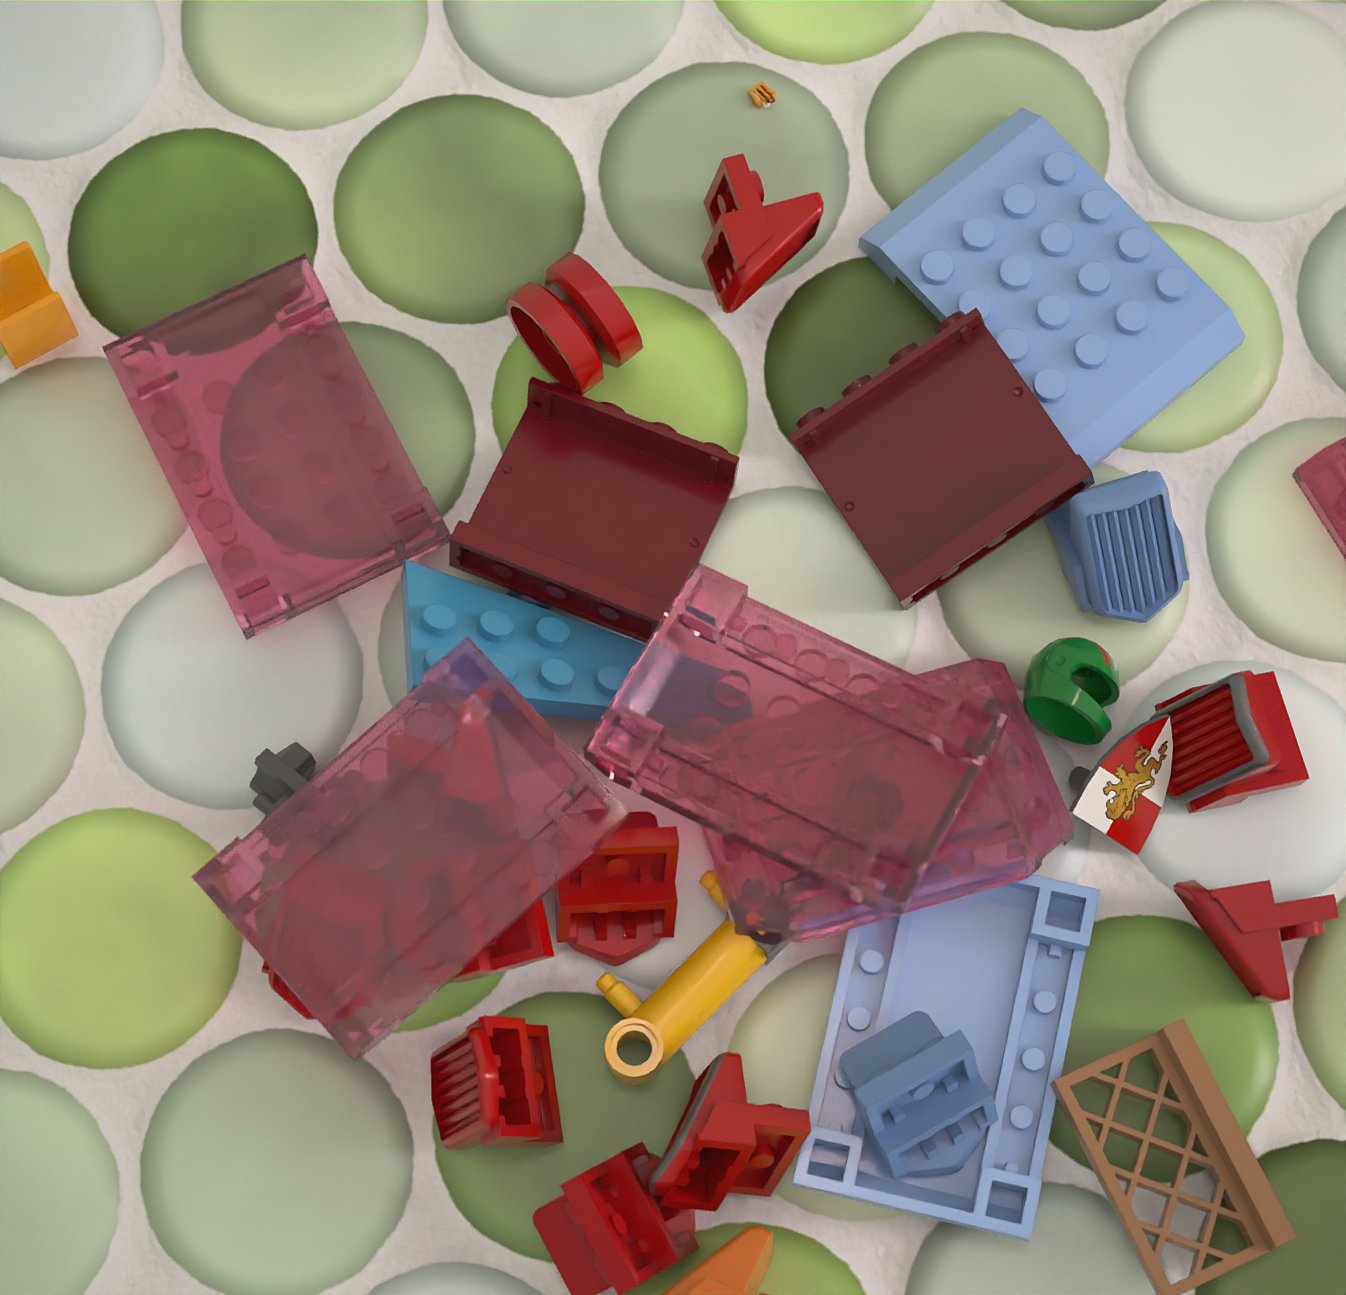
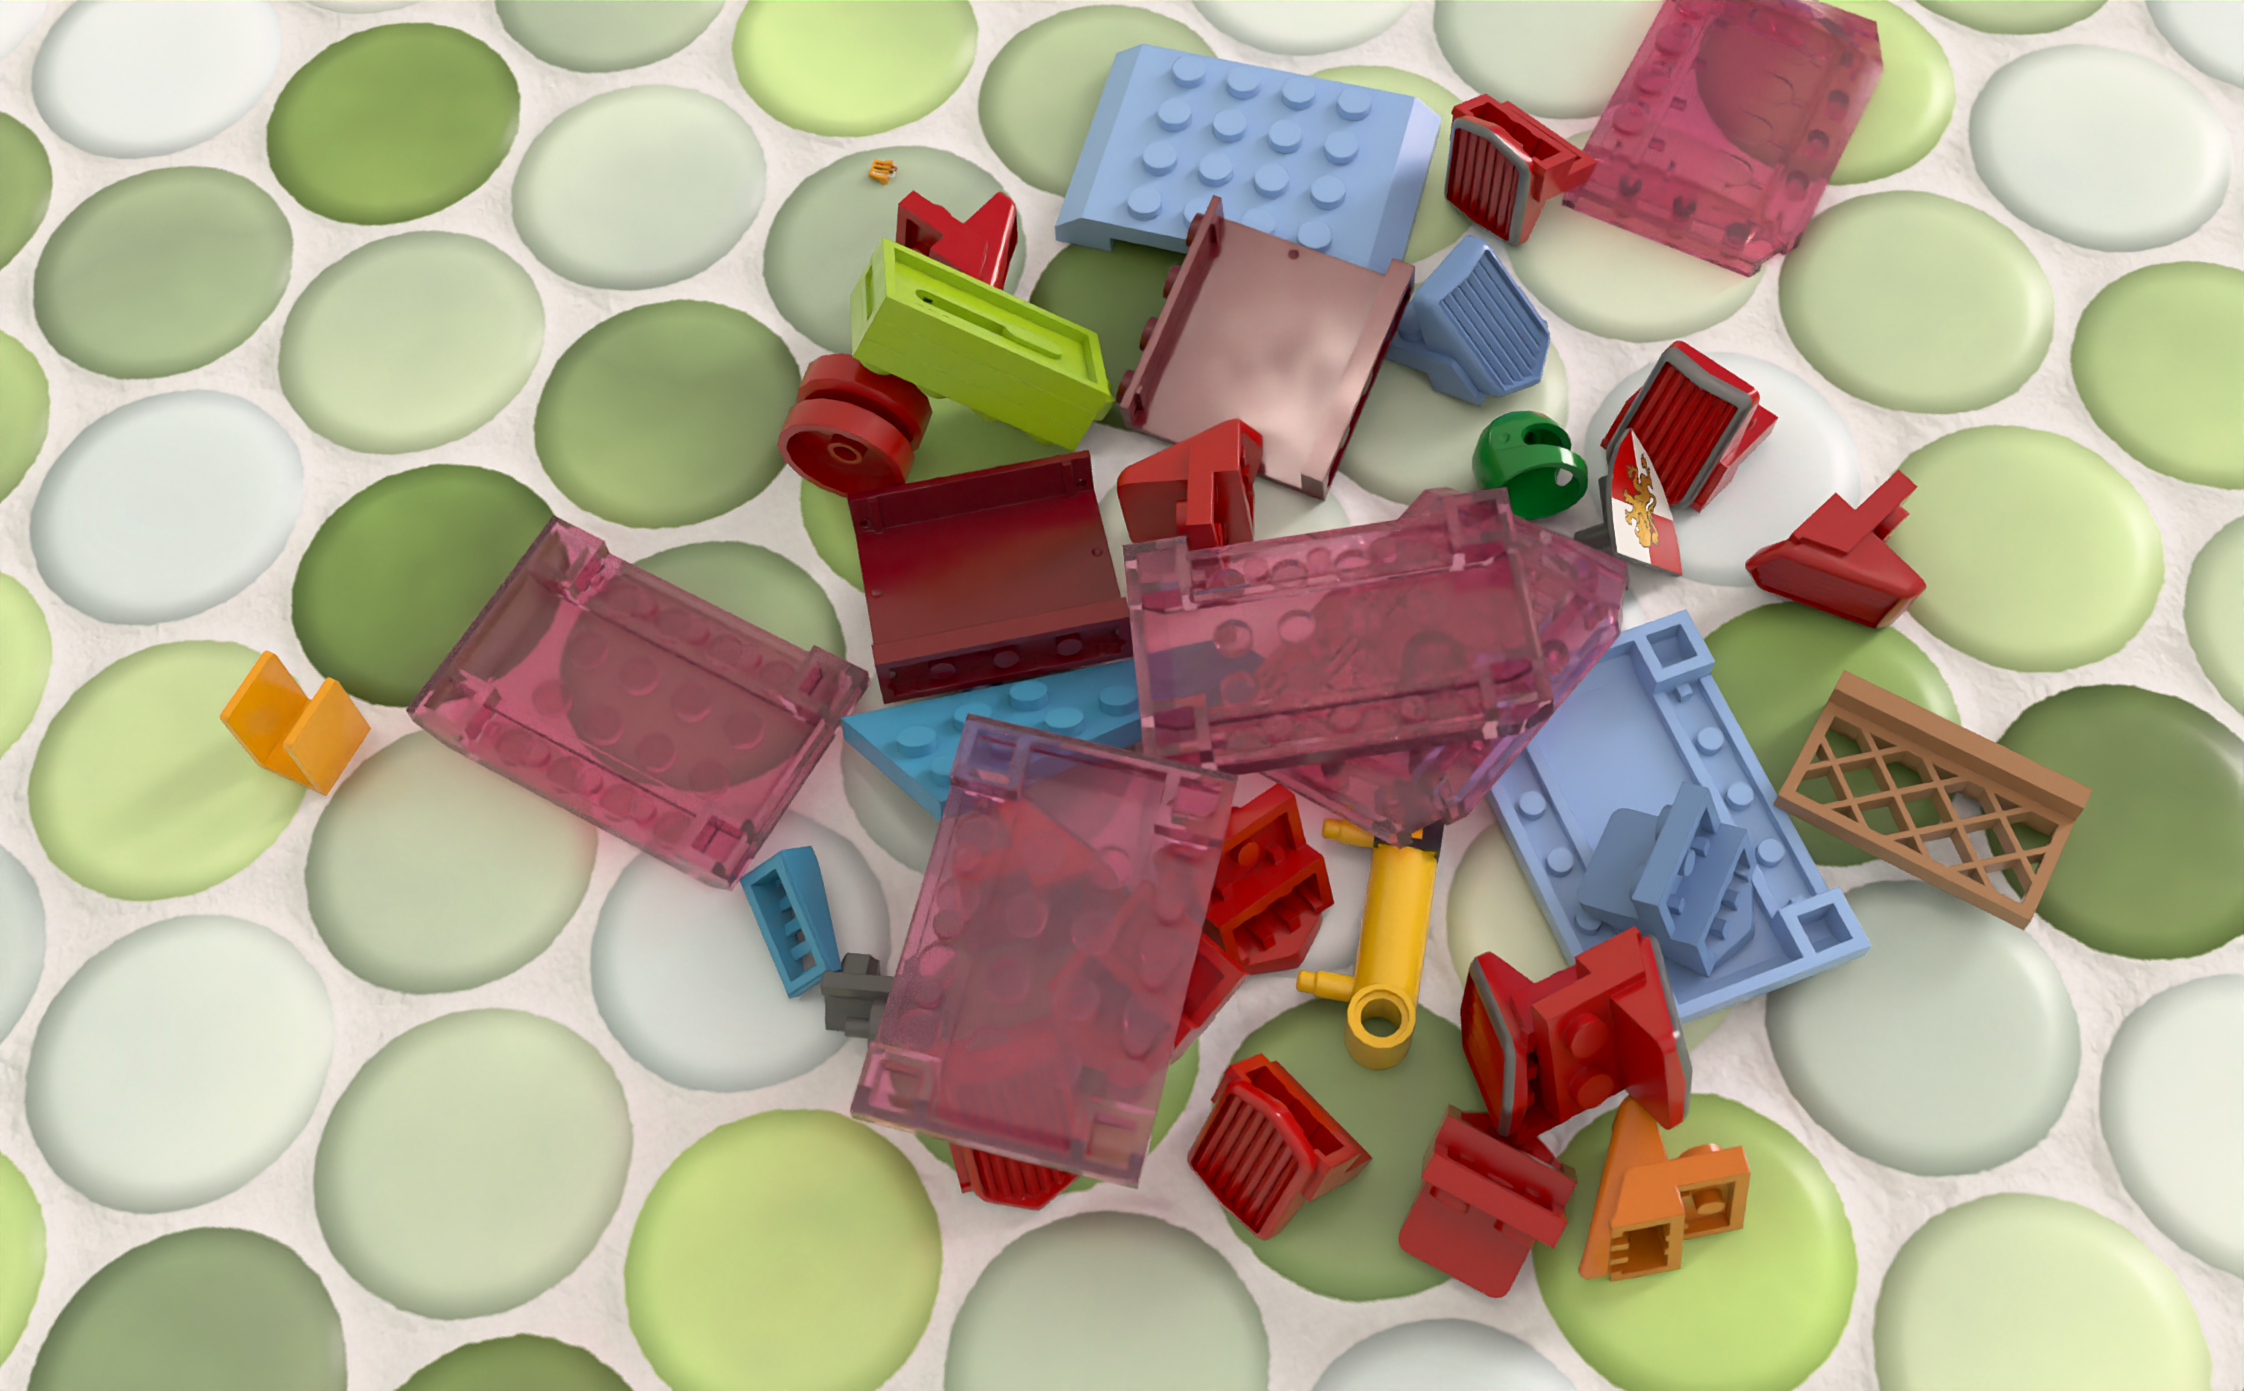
camera: 30 degrees left, 10 degrees down
(277, 689) = (796, 882): none -> dark azure slope
(703, 323) = (978, 346): none -> lime piece
(771, 1176) = (1614, 1034): none -> red piece
(799, 549) = (1195, 489): none -> red piece
(1258, 421) = (1507, 167): none -> red piece

